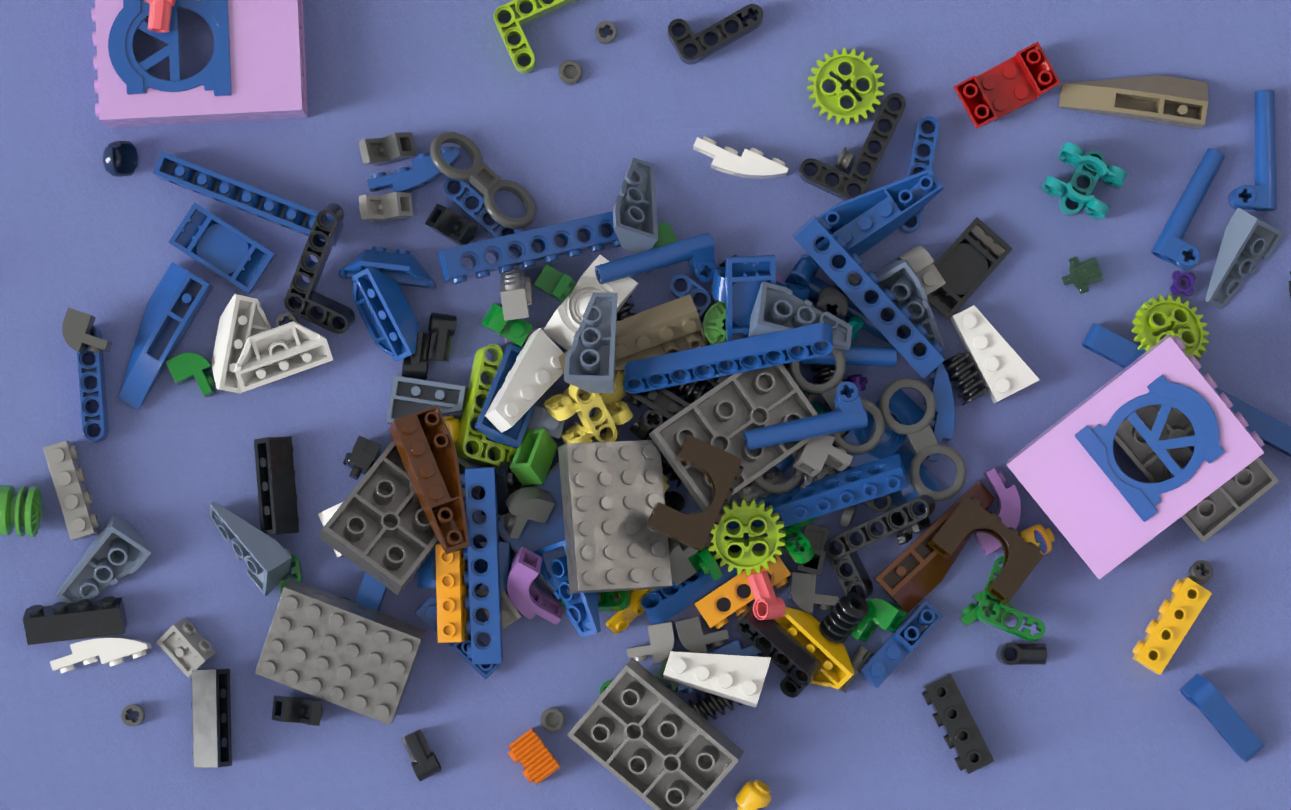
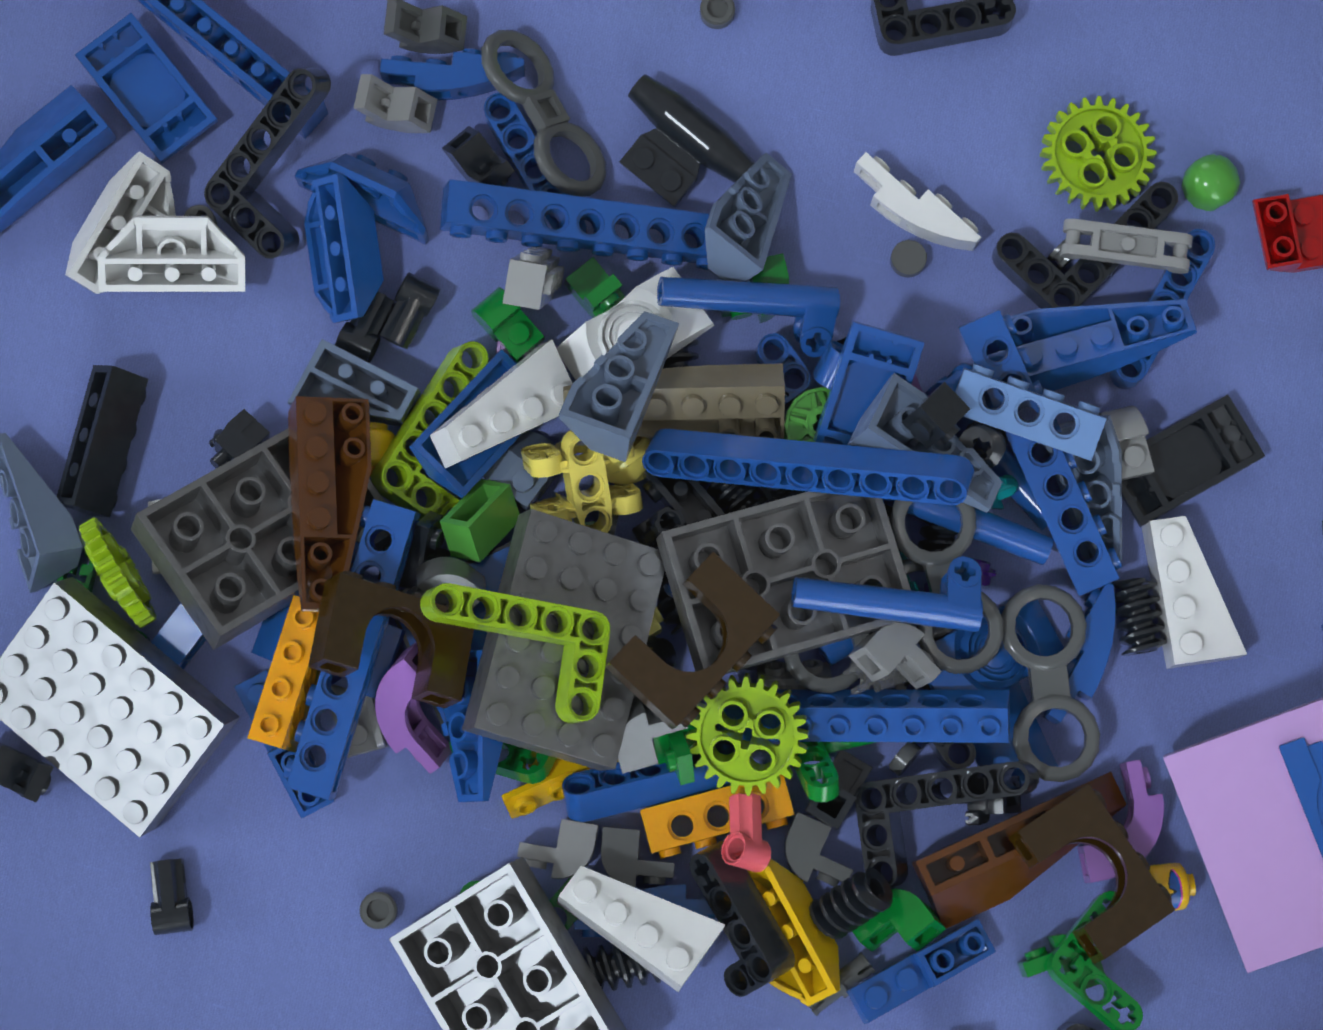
camera: 15 degrees right, 5 degrees down
(191, 365) = (46, 236): green brick -> none
(318, 566) = (117, 572): none -> lime gear
(534, 536) = (341, 626): none -> dark brown arch
(534, 757) = (331, 955): orange brick -> none
(576, 169) = (683, 139): none -> black plate
(593, 517) = (534, 627): none -> lime beam
(746, 195) = (908, 258): none -> dark grey tile
(798, 301) = (936, 416): none -> black brick
(882, 144) = (1126, 245): none -> light grey plate
(891, 285) = (1078, 441): none -> medium blue brick
(923, 80) = (1210, 182): none -> bright green hair

